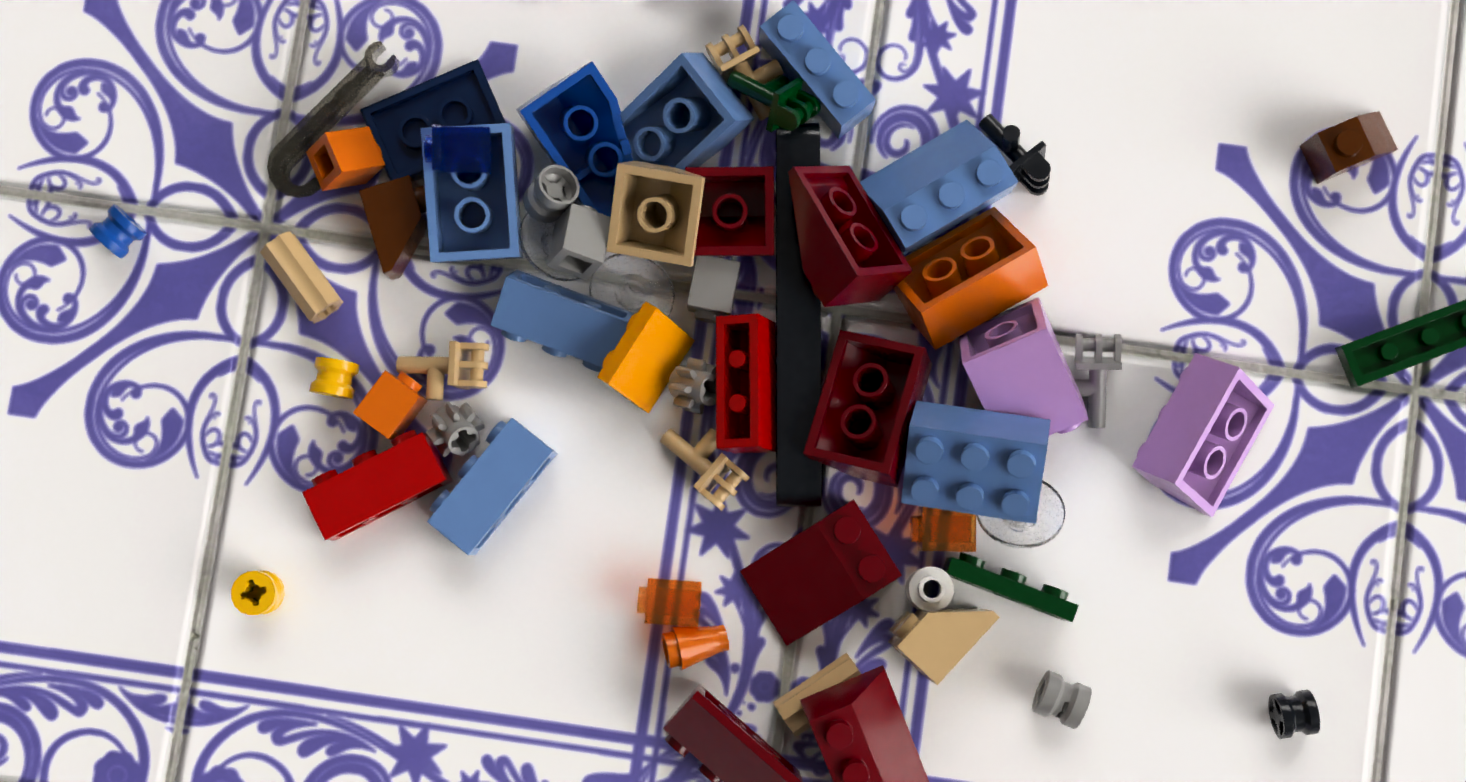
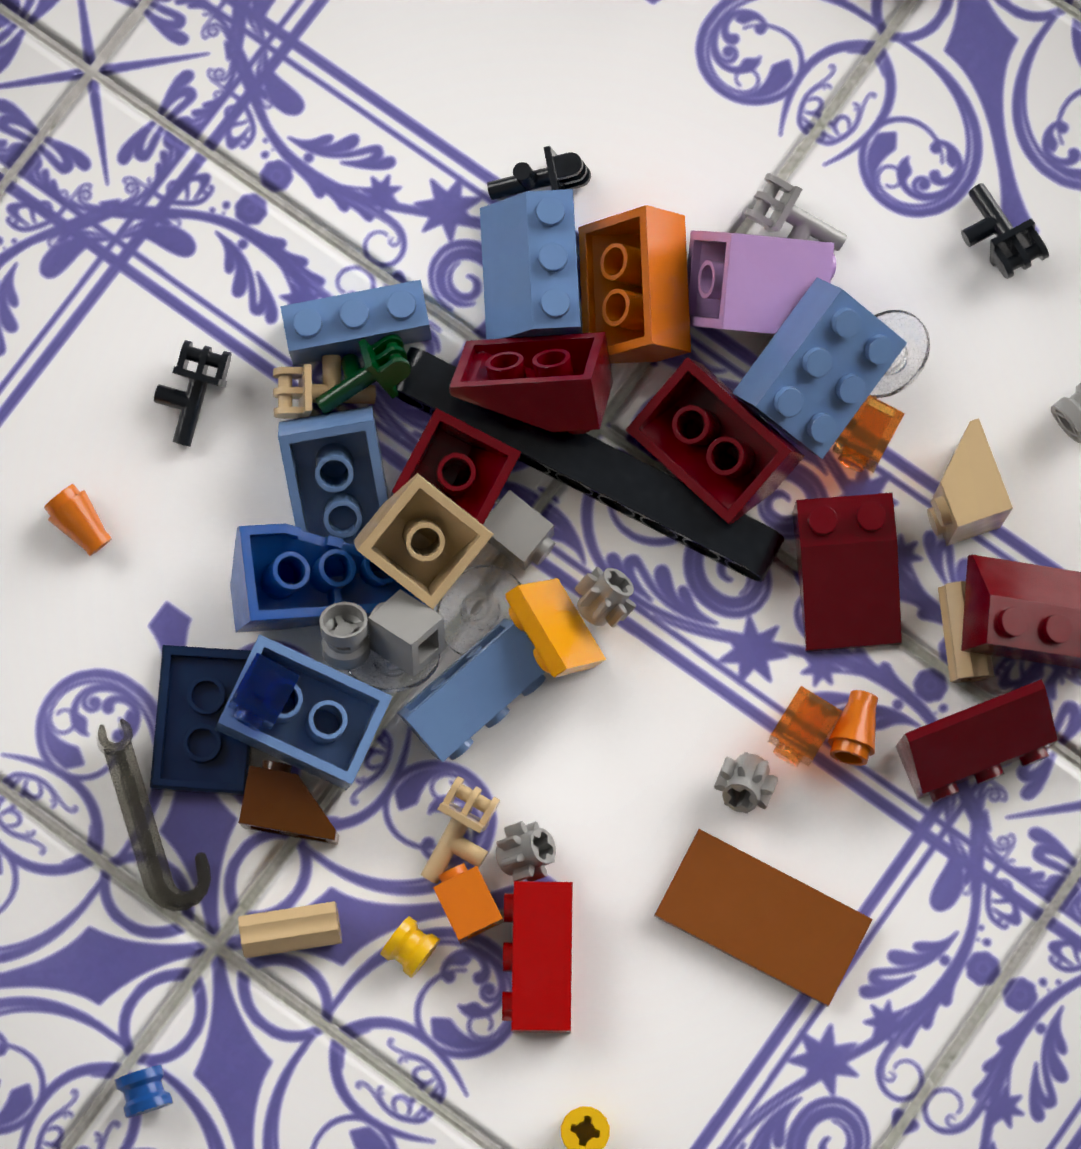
camera: 60 degrees left, 5 degrees down
(345, 158) = (196, 822): orange brick -> none
(490, 486) = (599, 845): medium blue brick -> none
(502, 648) = (763, 917): none -> dark orange tile
(601, 578) = (746, 782): none -> light grey gear
(710, 472) = (678, 633): tan arm -> none
(745, 384) = (630, 546): red brick -> none
(915, 592) = (917, 490): white brick -> none
(1011, 587) = (953, 402): dark green plate -> none
(1174, 564) = (1013, 245): none -> black arm
(1204, 433) = (900, 148): lavender slope -> none

